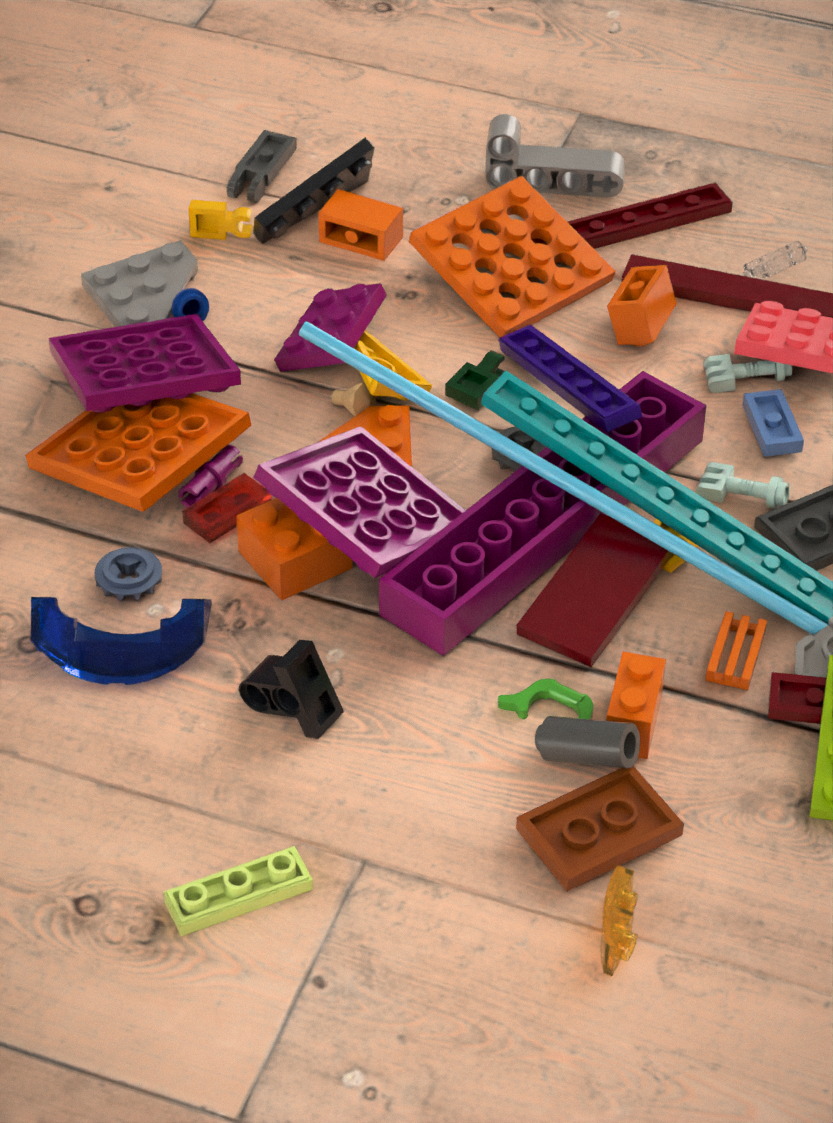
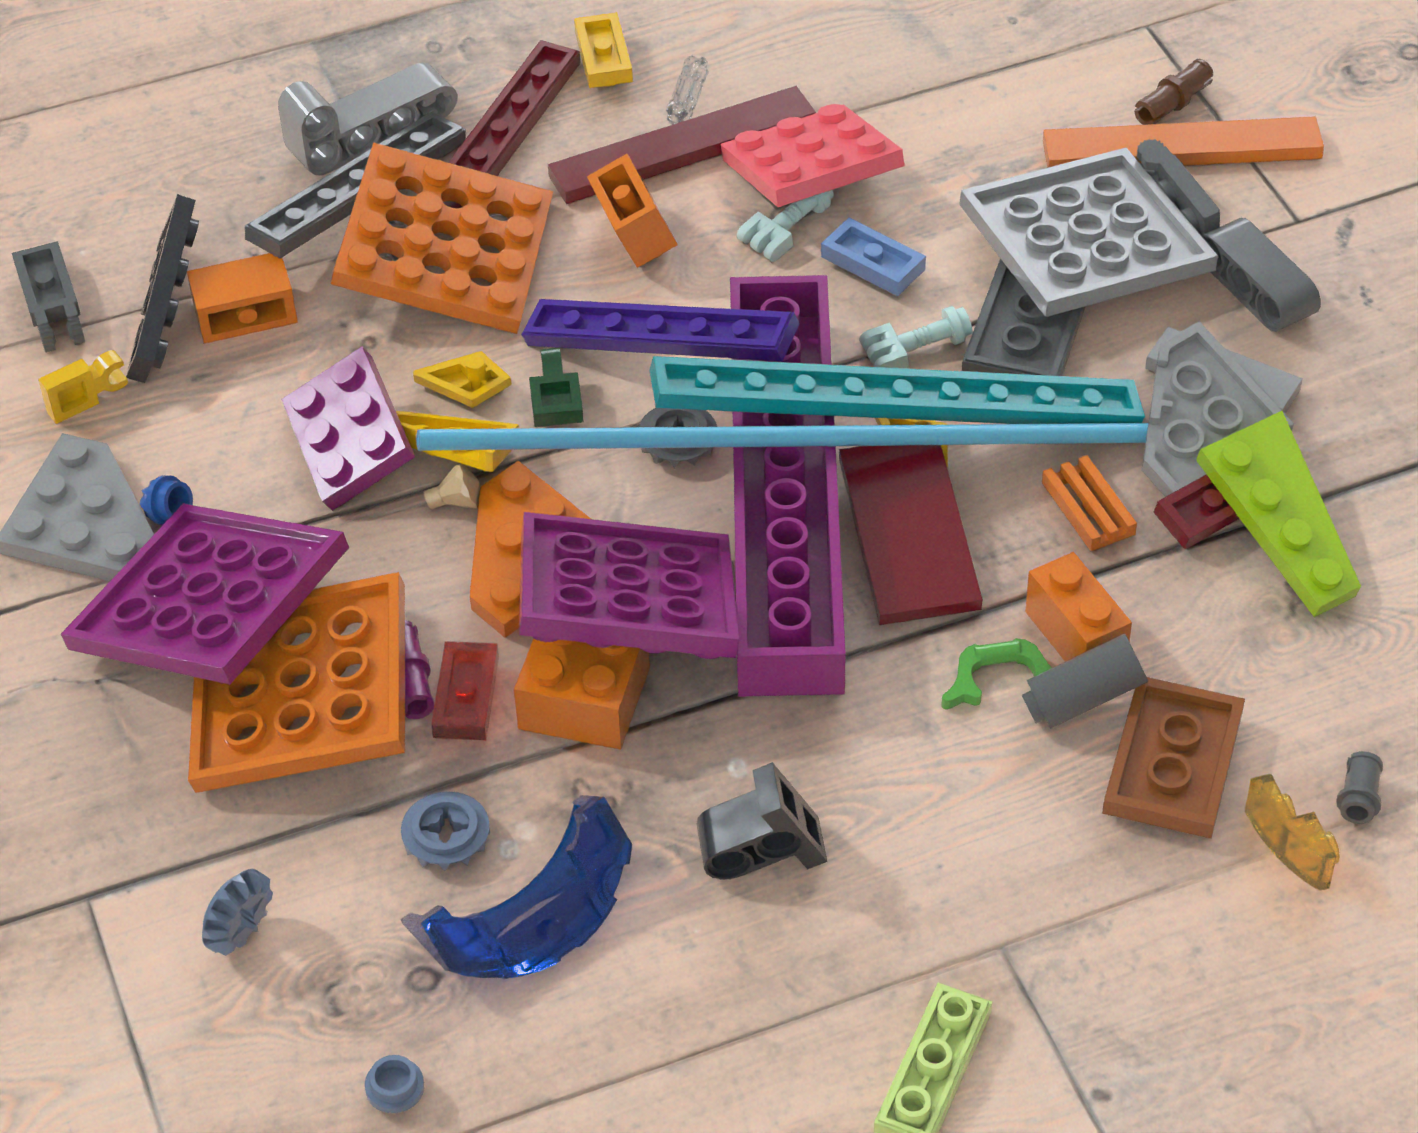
camera: 40 degrees left, 5 degrees up
(436, 345) = (465, 378): none -> yellow piece
(450, 195) = (334, 195): none -> dark grey tile
(690, 935) = (1359, 798): none -> dark grey pin
(747, 209) = (603, 50): none -> yellow plate

